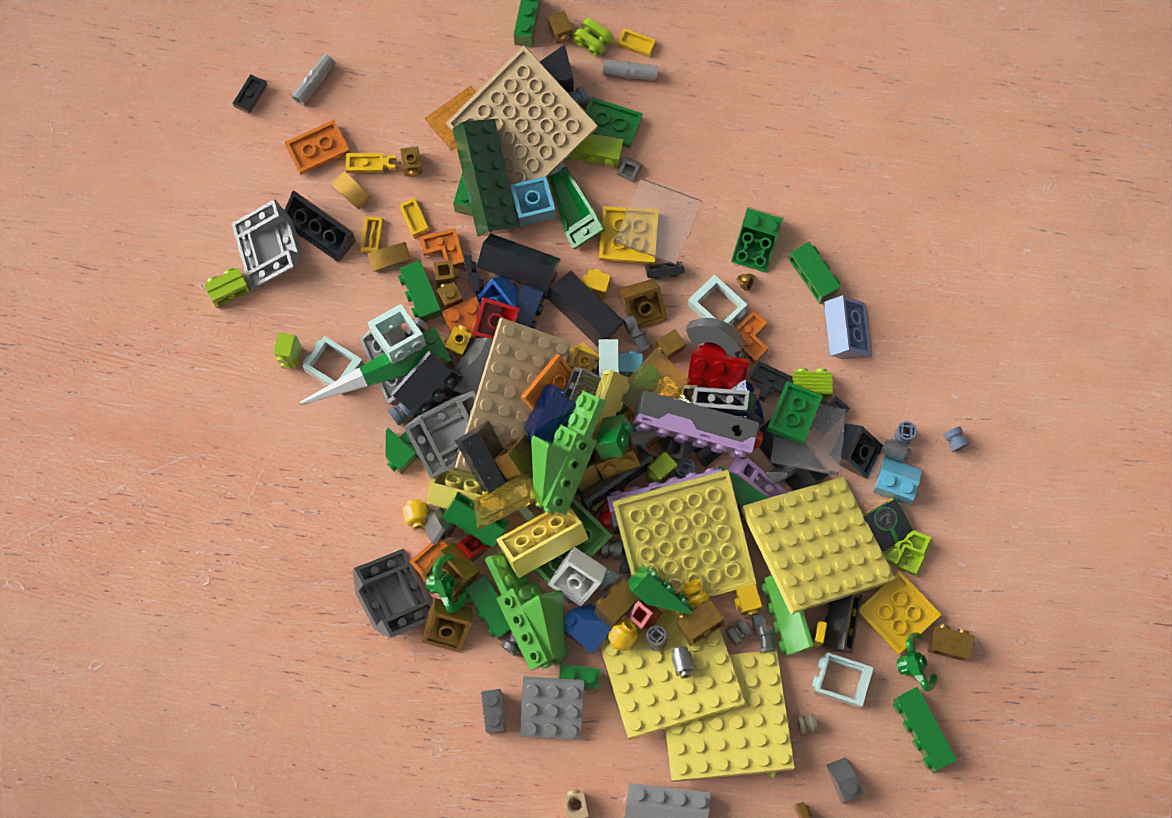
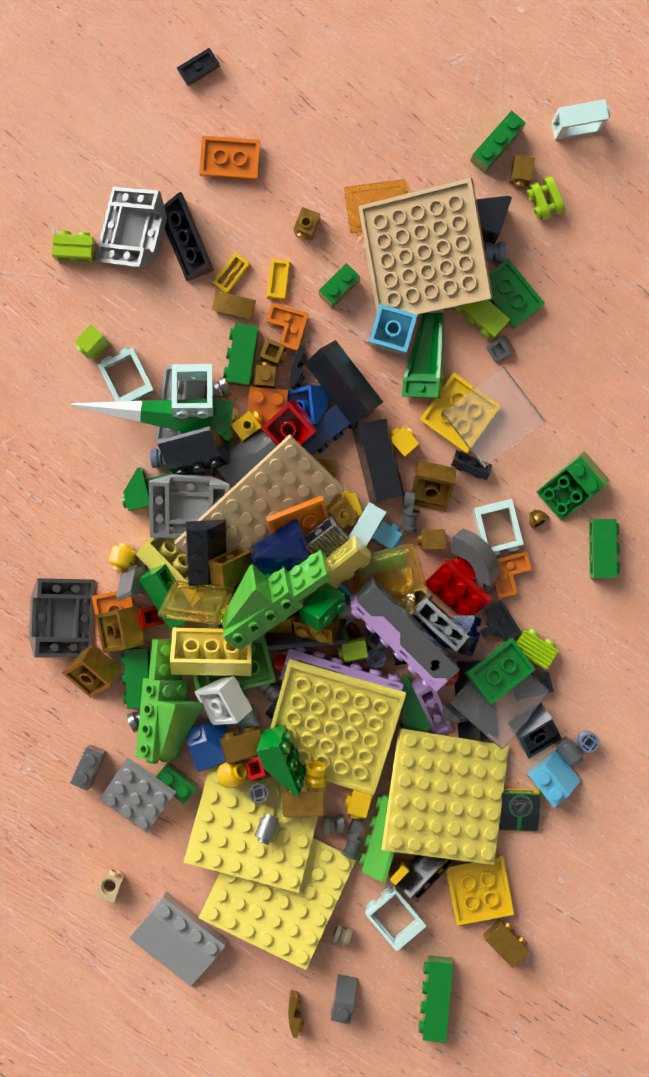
camera: 30 degrees right, 15 degrees up
(313, 79) = (264, 87): light grey axle -> none
(351, 190) = (236, 219): pearl gold slope -> none
(369, 162) = (267, 201): yellow plate -> none
(444, 585) = (104, 642): green piece -> none
(485, 177) = (361, 284): dark green brick -> none
(630, 70) = (559, 252): light grey axle -> none
(636, 42) = (583, 227): yellow tile -> none
(847, 328) = (598, 617): medium blue slope -> none
(910, 552) = (522, 845): lime slope -> none
(915, 664) = (464, 943): green piece -> none
(956, 439) = (628, 774): sand blue wheel -> none

